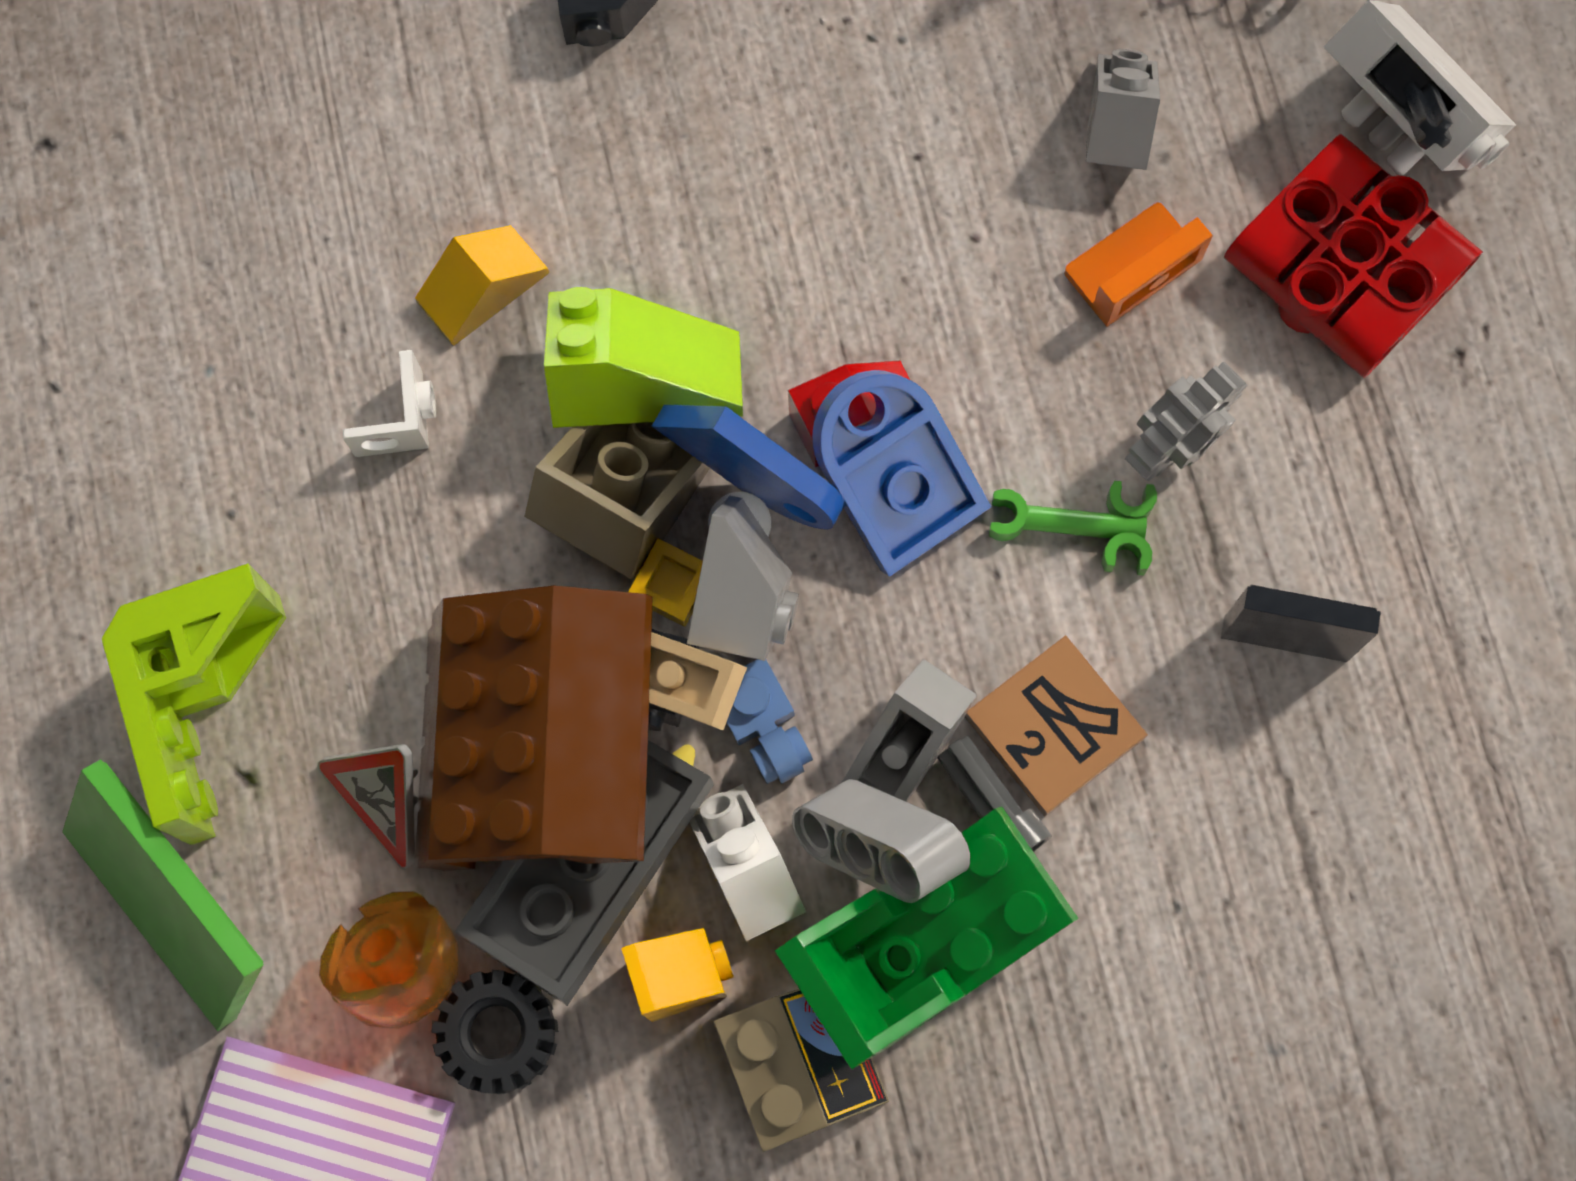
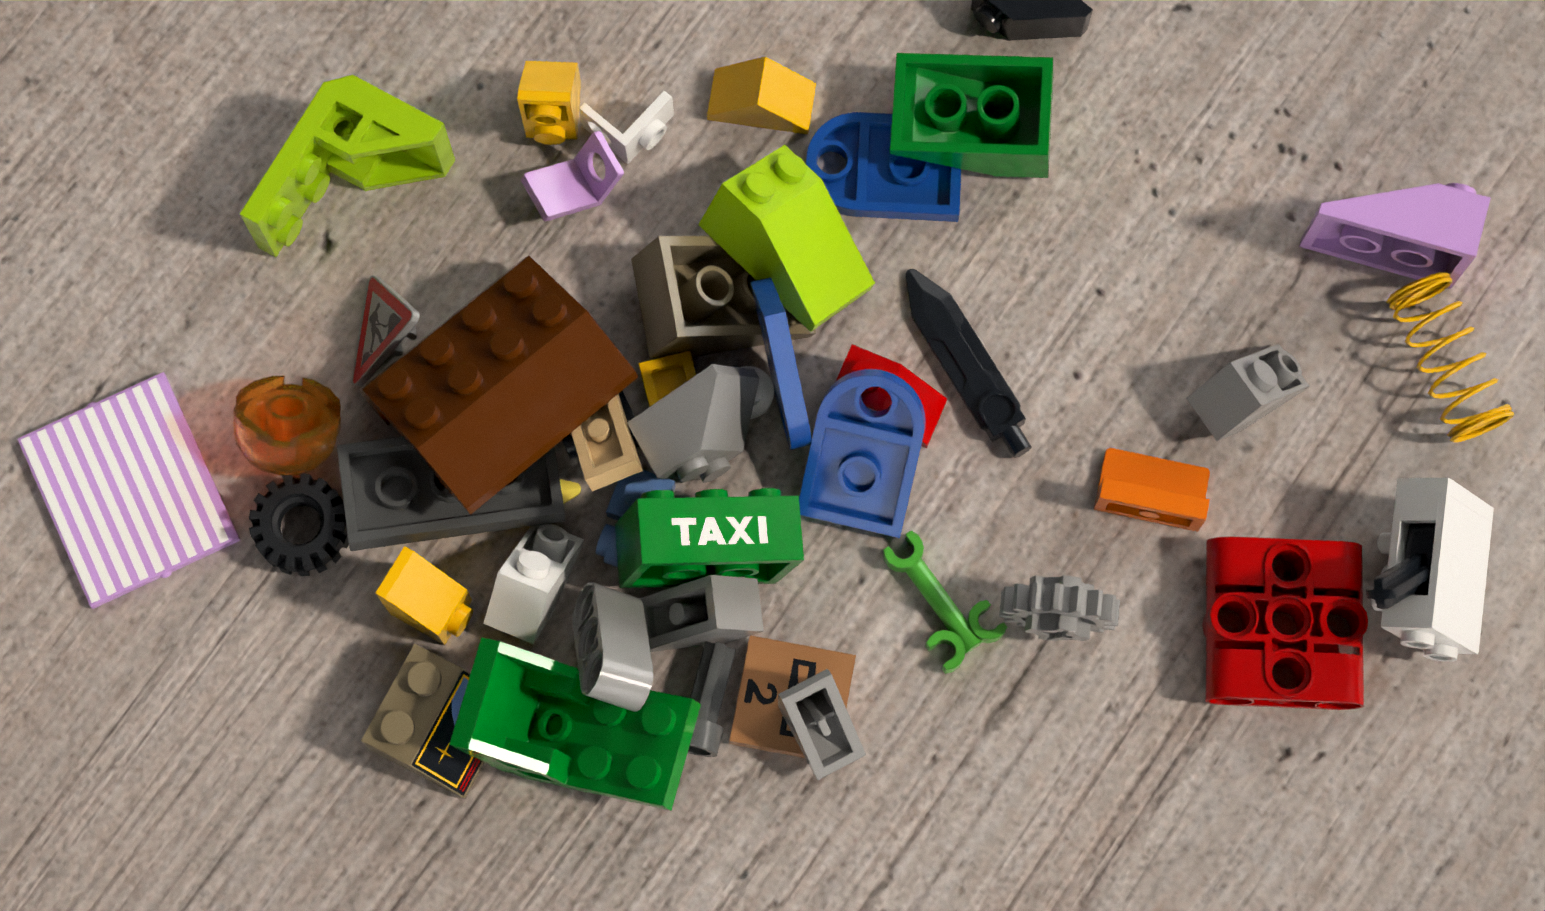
camera: 45 degrees right, 0 degrees up
(161, 895) = (209, 256): bright green tile -> none
(311, 459) = (550, 101): none -> yellow slope
(404, 507) = (573, 183): none -> lavender bracket
(648, 222) = (878, 182): none -> blue tile
(672, 109) = (974, 112): none -> green slope
(855, 666) = (684, 539): none -> green brick
(881, 317) = (966, 362): none -> black piece
(1109, 716) = (821, 724): none -> light grey slope
(1300, 623) = (988, 790): black tile -> none

